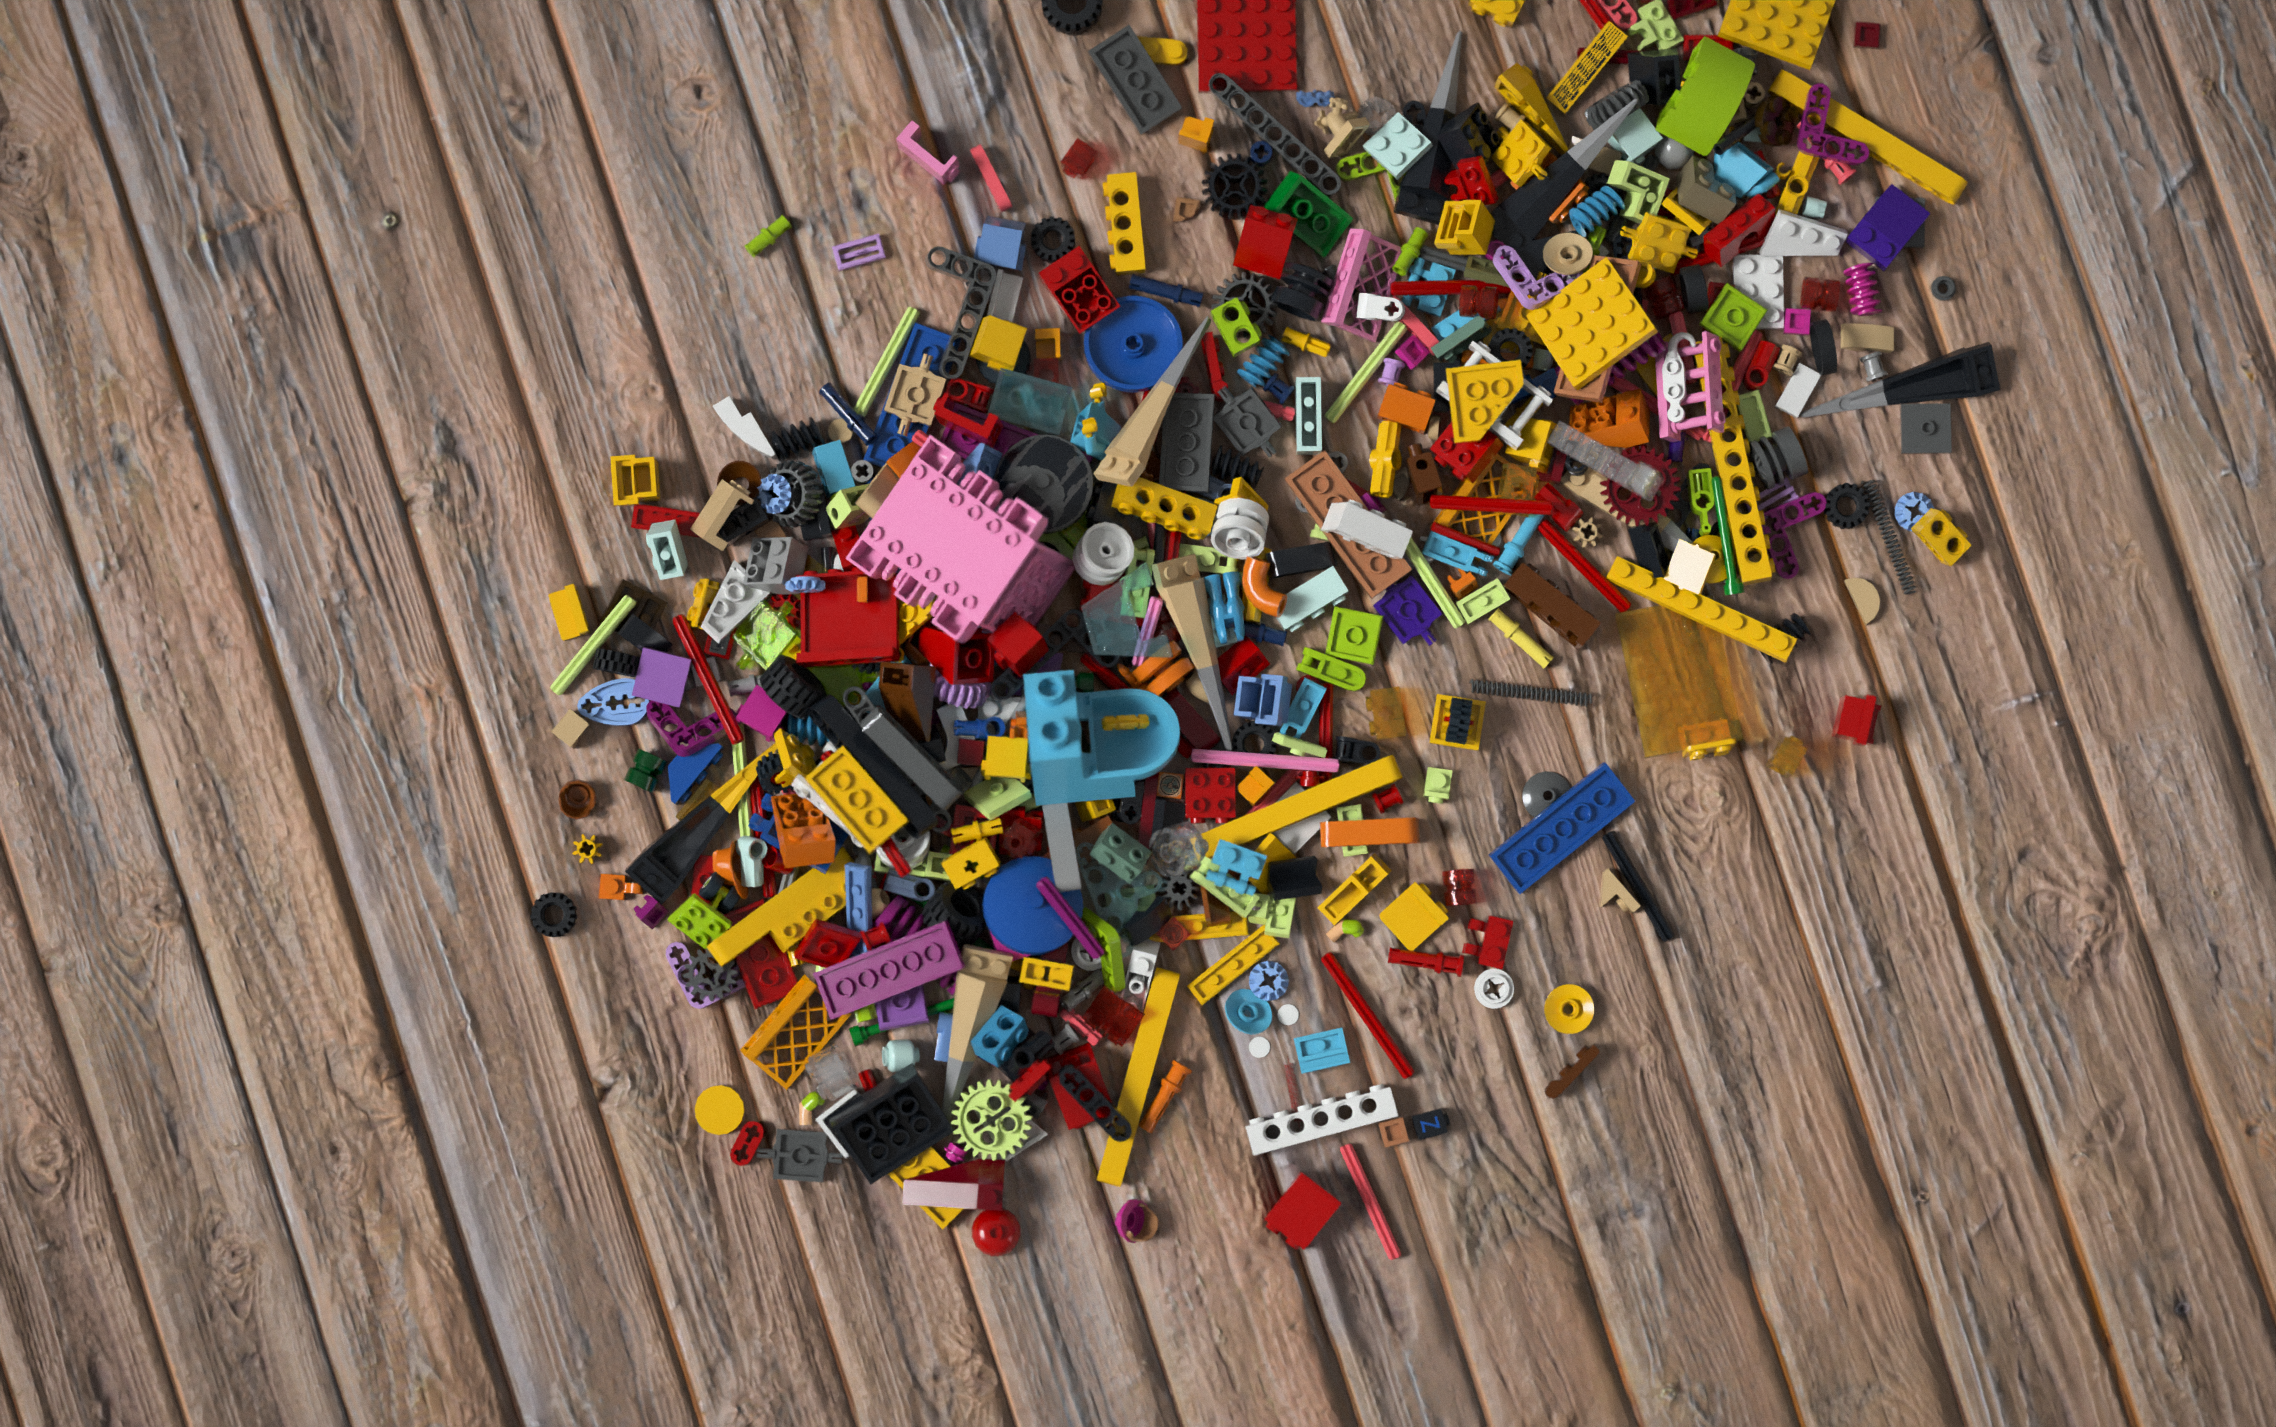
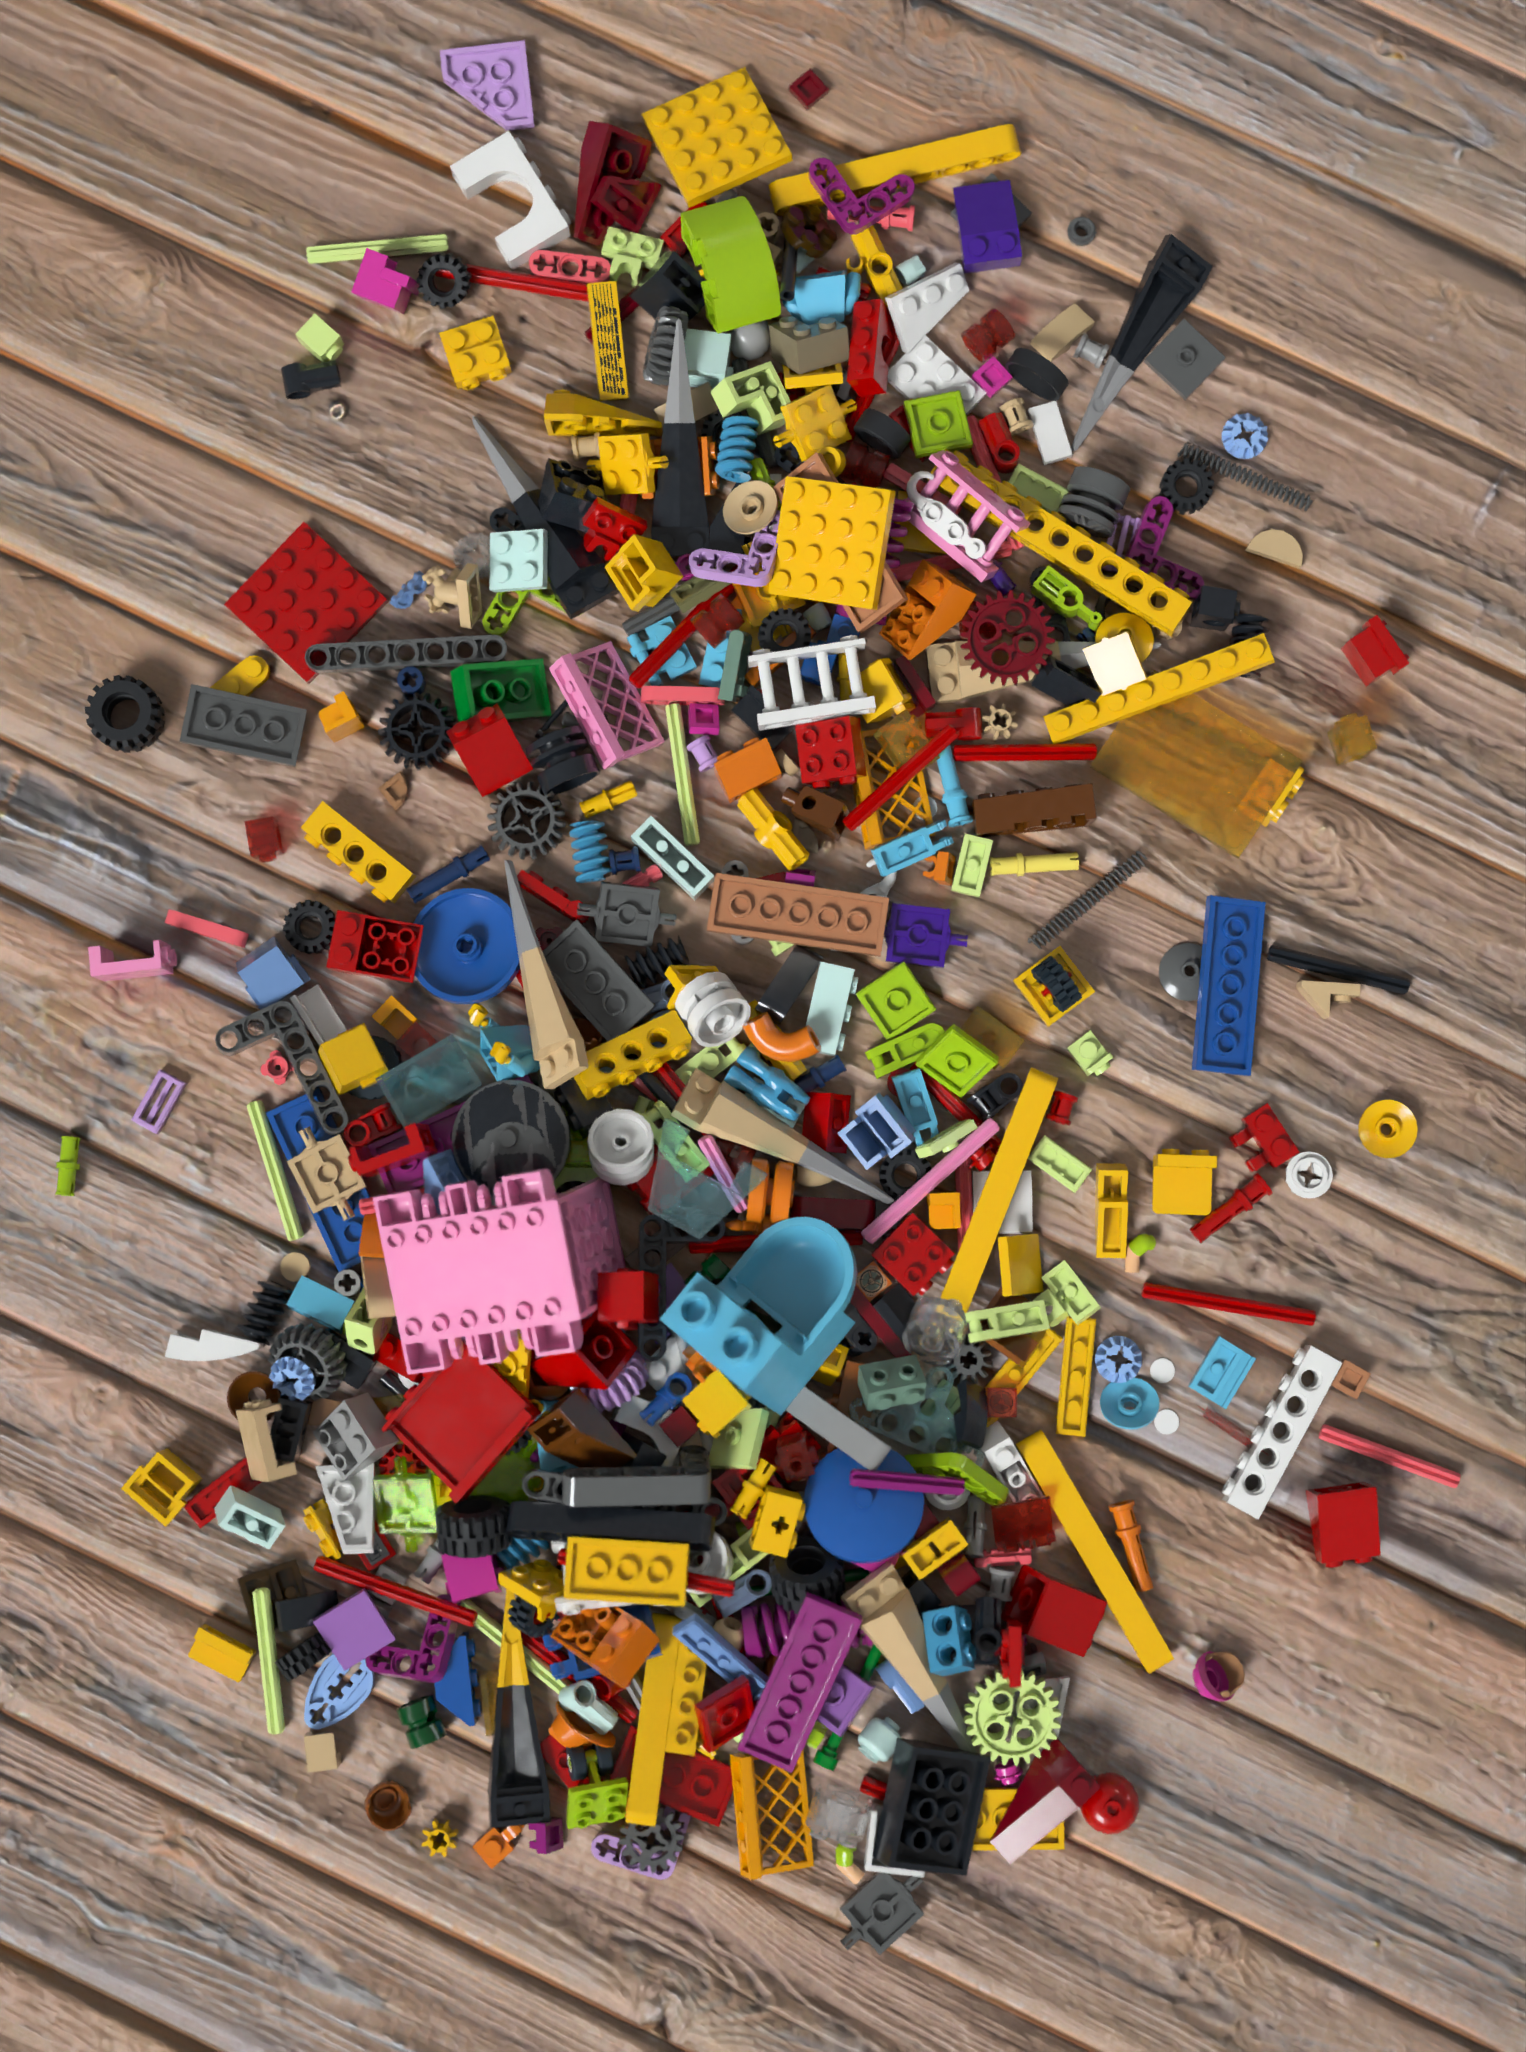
camera: 50 degrees left, 0 degrees up
(540, 907) = (467, 1904): black tyre -> none
(719, 1110) = (775, 1941): yellow tile -> none
(742, 1140) = (833, 1943): red beam -> none
(805, 584) = (396, 1429): light blue gear -> none
(862, 589) = (449, 1384): orange tile -> none
(866, 433) = (318, 1248): dark blue pin -> none
(875, 936) = (759, 1666): red bush -> none
(943, 298) = (268, 1068): none -> coral plate
(1094, 1103) = (1085, 1614): black beam -> none
(1125, 722) = (783, 1269): yellow axle -> none
(1230, 329) = (535, 851): lime brick -> none
(1239, 860) = (996, 1287): medium azure plate -> none
(1293, 878) = (1054, 1254): black panel -> none
(1320, 260) = (542, 730): none -> black hinge
(1353, 706) = (957, 1060): none -> lime plate
(1368, 528) = (819, 901): white wedge -> none
(1370, 832) = (1078, 1151): orange beam -> none
(1375, 307) = (636, 712): white piece -> none
(1410, 251) = (617, 638): lime pin -> none
(1430, 1123) = (1373, 1341): black brick -> none
(1434, 584) = (904, 889): yellowish green axle -> none
(1461, 896) = (1203, 1129): clear red wheel -> none
(1466, 539) = (905, 828): red bar -> none
(1480, 396) = (802, 695): yellow plate -> none
(1570, 1072) = (1443, 1178): reddish brown hinge -> none
(1575, 470) = (927, 667): black bush -> none
(1635, 477) = (963, 644): clear beam -> none
(1733, 584) = (1164, 641): green piece -> none
(1785, 595) = (1214, 608): none -> black brick
(1862, 290) = (1018, 297): dark pink piece -> none
(1938, 540) = (1290, 437): yellow brick -> none

